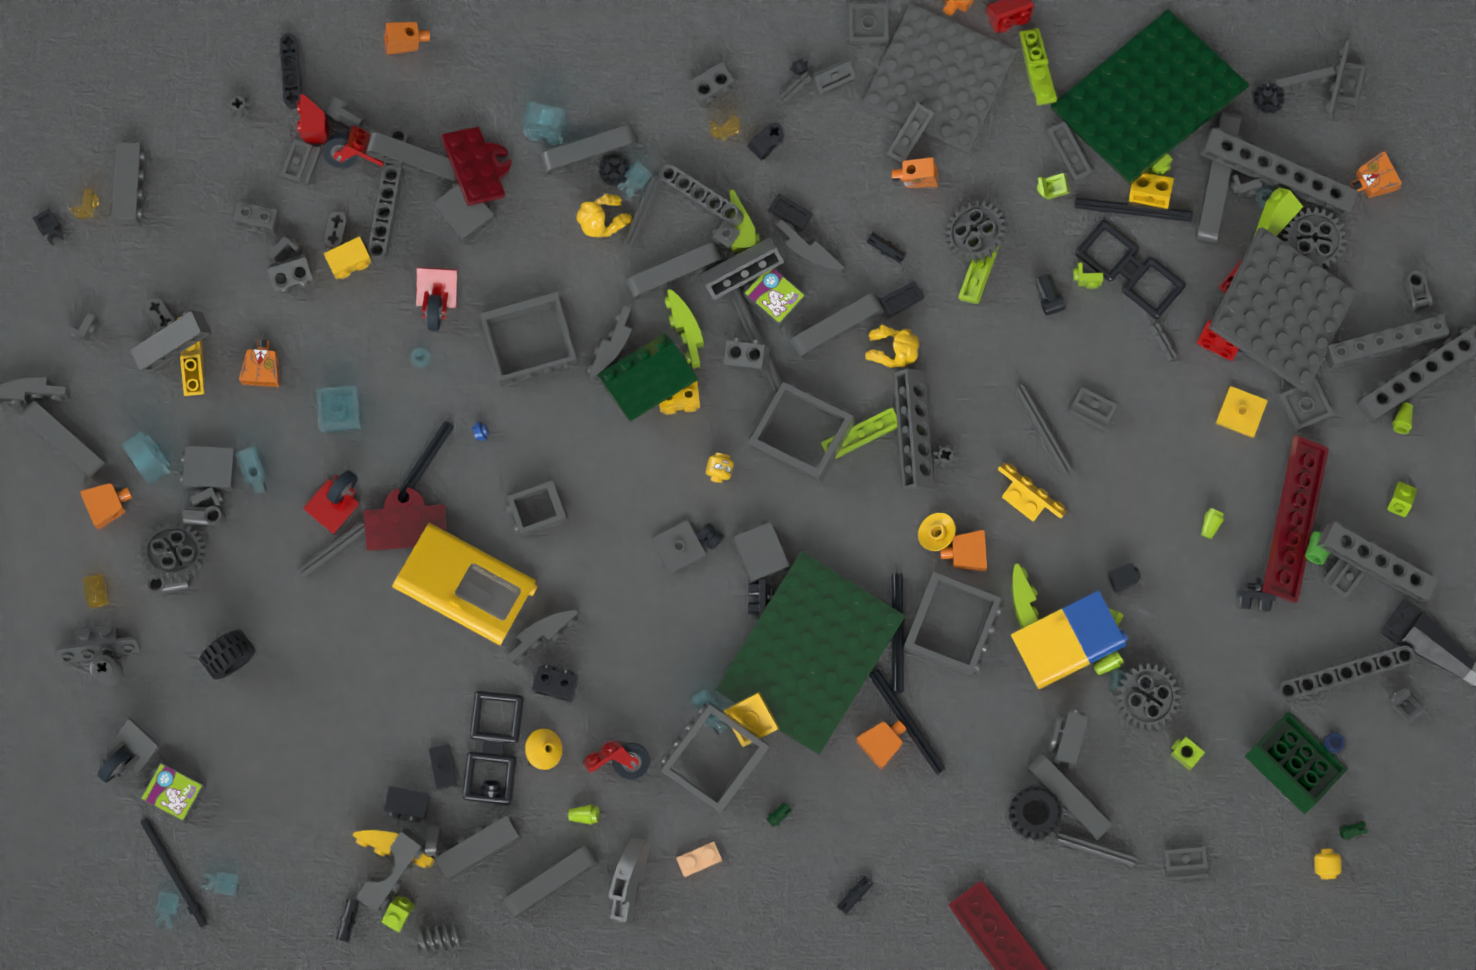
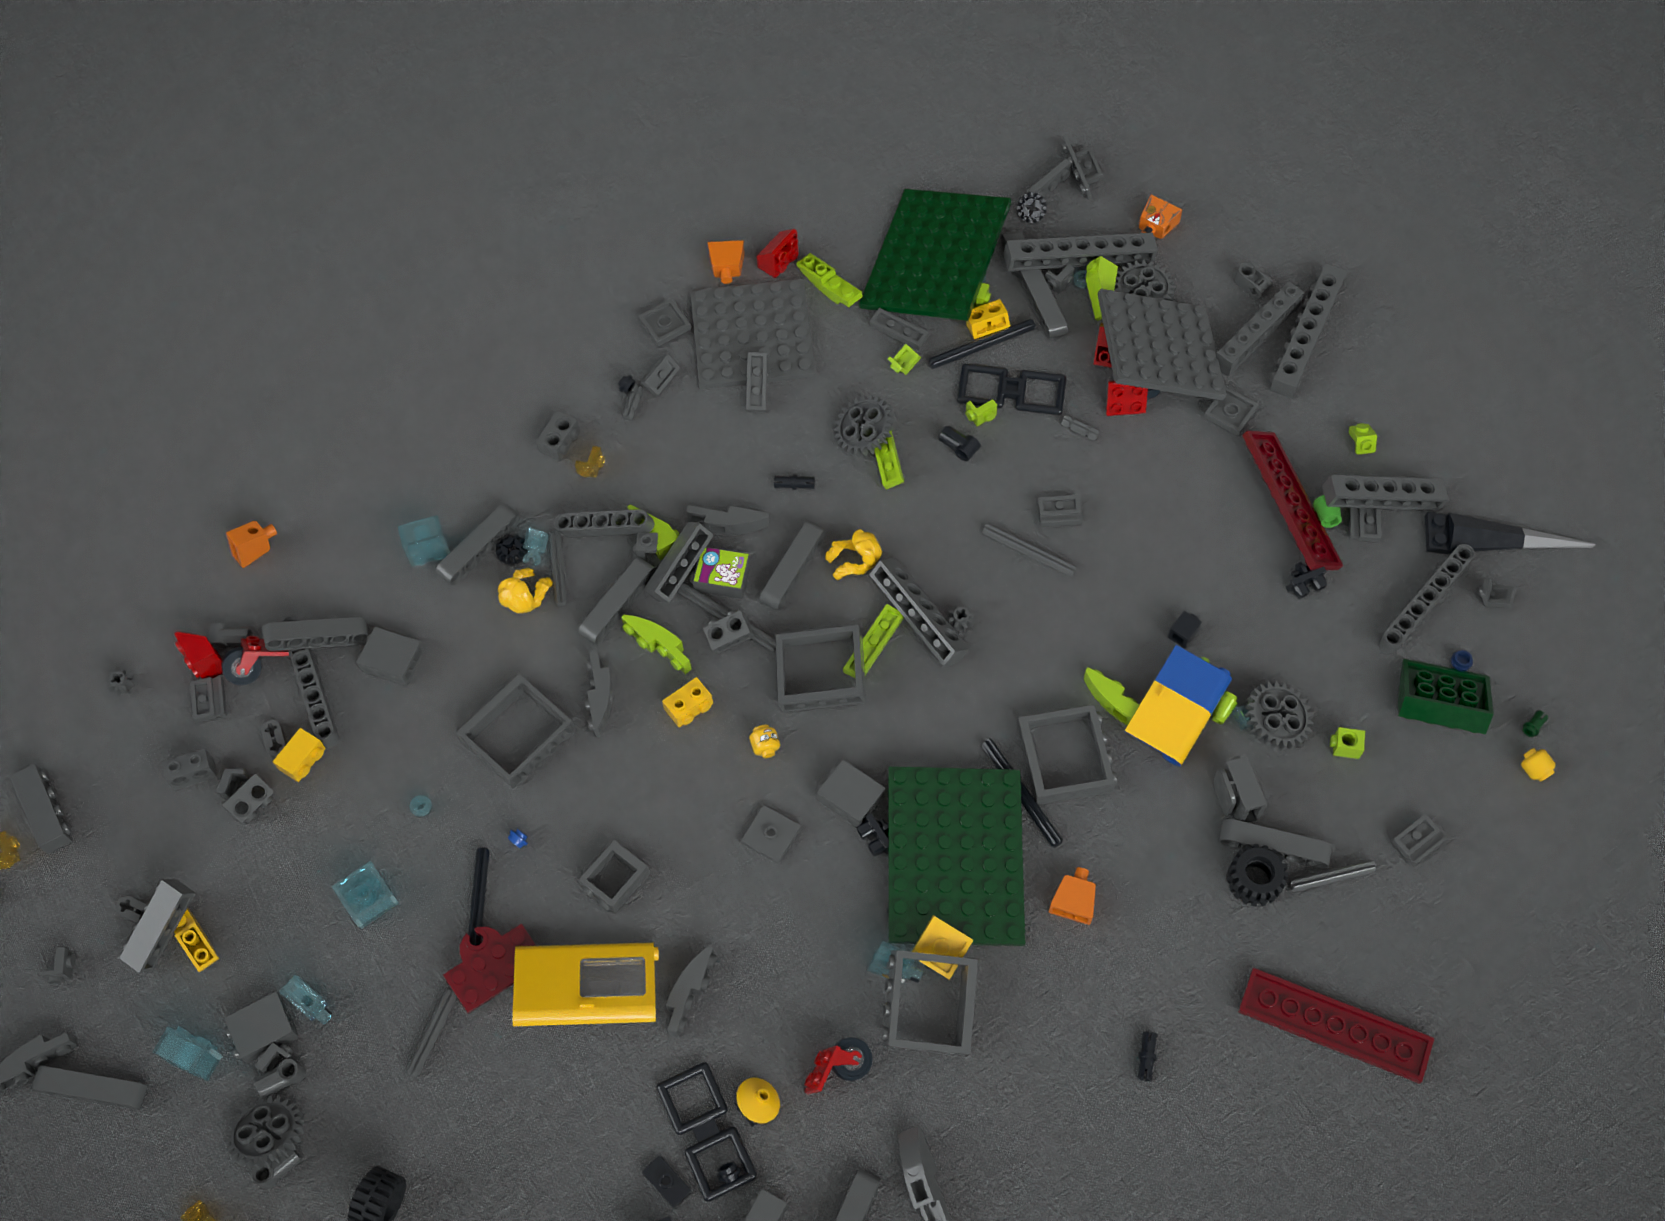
camera: 30 degrees left, 15 degrees down
(105, 503) = (167, 1125): orange torso -> none
(260, 366) = (264, 901): orange torso -> none
(290, 70) = (155, 628): black beam -> none
(334, 501) = (408, 985): red plate -> none
(436, 294) = (403, 738): plate -> none
(476, 165) = (380, 609): dark red plate -> none
(555, 683) = (730, 1029): black brick -> none
(585, 814) = (838, 1140): lime cone -> none
(647, 377) = (648, 698): dark green slope -> none
(699, 859) = (977, 1115): light nougat plate -> none
(710, 536) = (794, 806): black wheel -> none
(764, 143) = (634, 453): black piece -> none
(779, 814) = (1025, 1022): dark green pin -> none
(790, 212) = (683, 497): black plate -> none
(901, 299) = (835, 514): black plate -> none
(907, 721) = (1094, 869): black axle -> none
(917, 173) = (783, 408): orange torso -> none
(930, 529) = (991, 679): yellow dish -> none
(967, 551) = (1035, 685): orange torso -> none
(1028, 497) = (1053, 612): yellow bracket -> none
(1212, 522) = (1225, 543): lime cone -> none
(1241, 412) = (1183, 445): yellow plate -> none
(1403, 419) = (1317, 379): lime cone -> none

